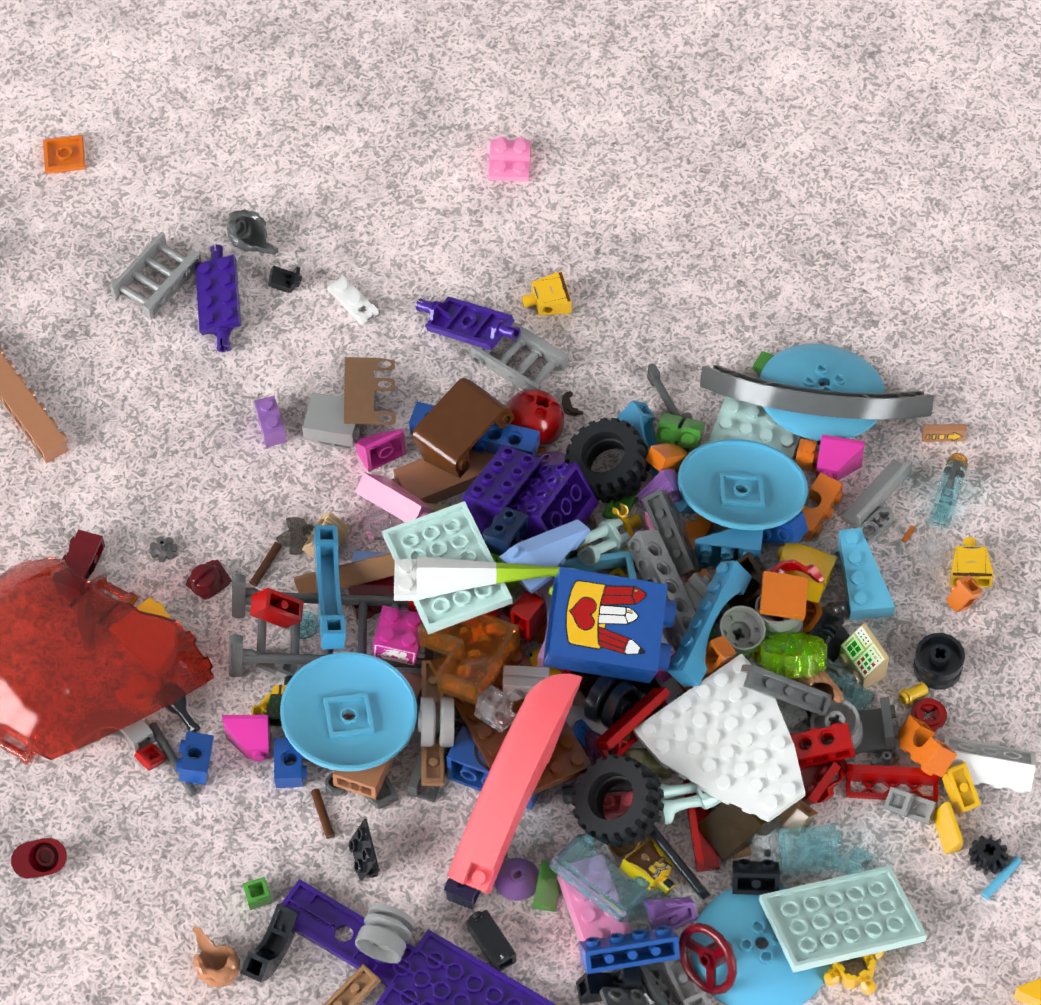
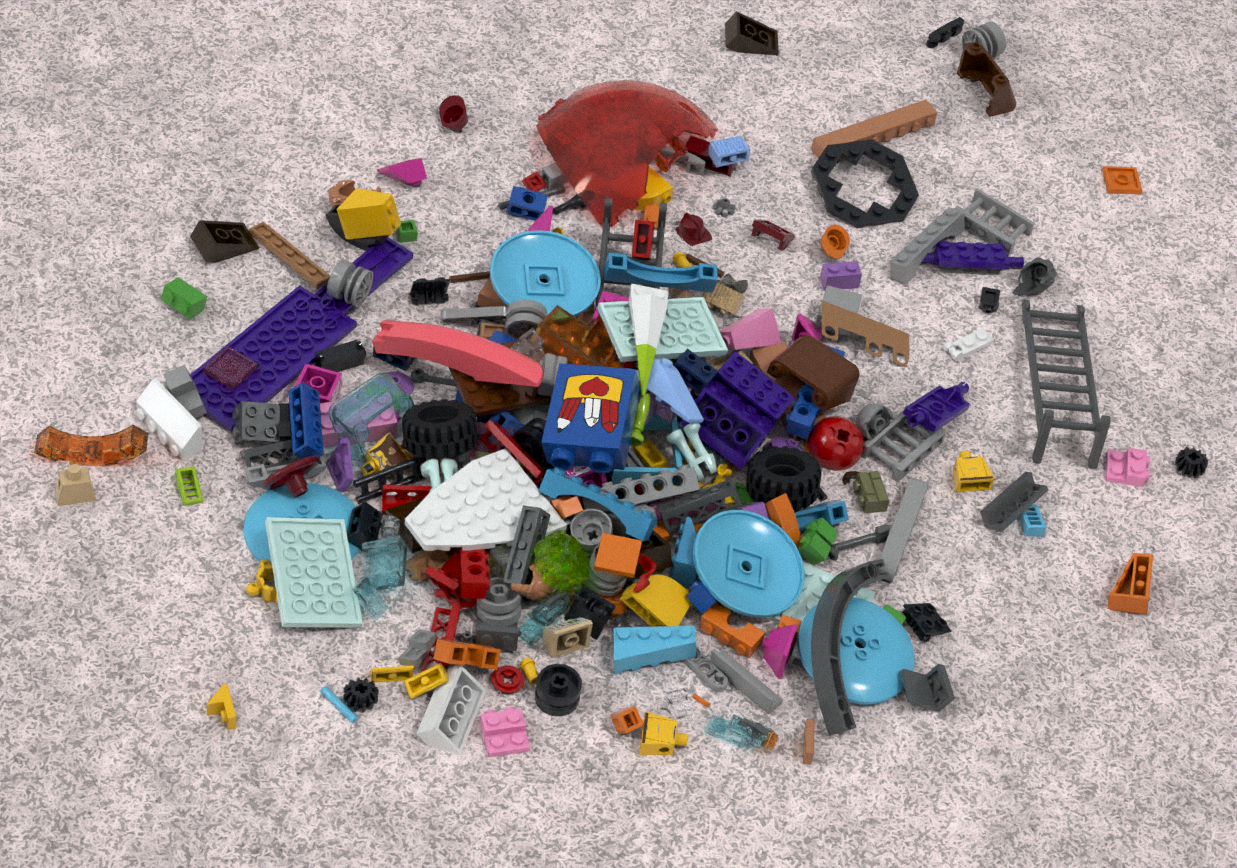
camera: 85 degrees right, 10 degrees down
(88, 536) = (729, 151): none -> light blue brick
(124, 435) = (853, 152): none -> black plate
(148, 907) = (407, 172): none -> dark pink slope
(194, 497) = (774, 231): none -> dark red piece
(194, 620) = (651, 213): none -> orange bracket
(217, 429) = (835, 241): none -> orange piece
(224, 344) = (906, 263): none -> light grey arch
(270, 582) = (680, 259): none -> yellow pin
(271, 918) = (368, 214): none -> yellow slope
(401, 794) = (473, 314): none -> light grey beam
(495, 103) = (1191, 462): none -> black gear
(495, 383) = (873, 417): none -> light grey cylinder
(496, 221) = (1045, 420): none -> dark grey piece
(553, 956) = (323, 380): none -> dark pink brick
(582, 263) = (1010, 501): none -> dark grey fence
(595, 386) = (871, 492): none -> olive brick
(608, 248) = (1028, 518): none -> medium azure slope
(637, 355) = (902, 527): none -> light grey beam
(677, 154) = (1133, 586): none -> orange wedge
(759, 336) = (924, 620): none -> black hinge
(853, 328) = (928, 690): none -> dark grey bracket
(999, 711) = (504, 732): none -> bright pink plate

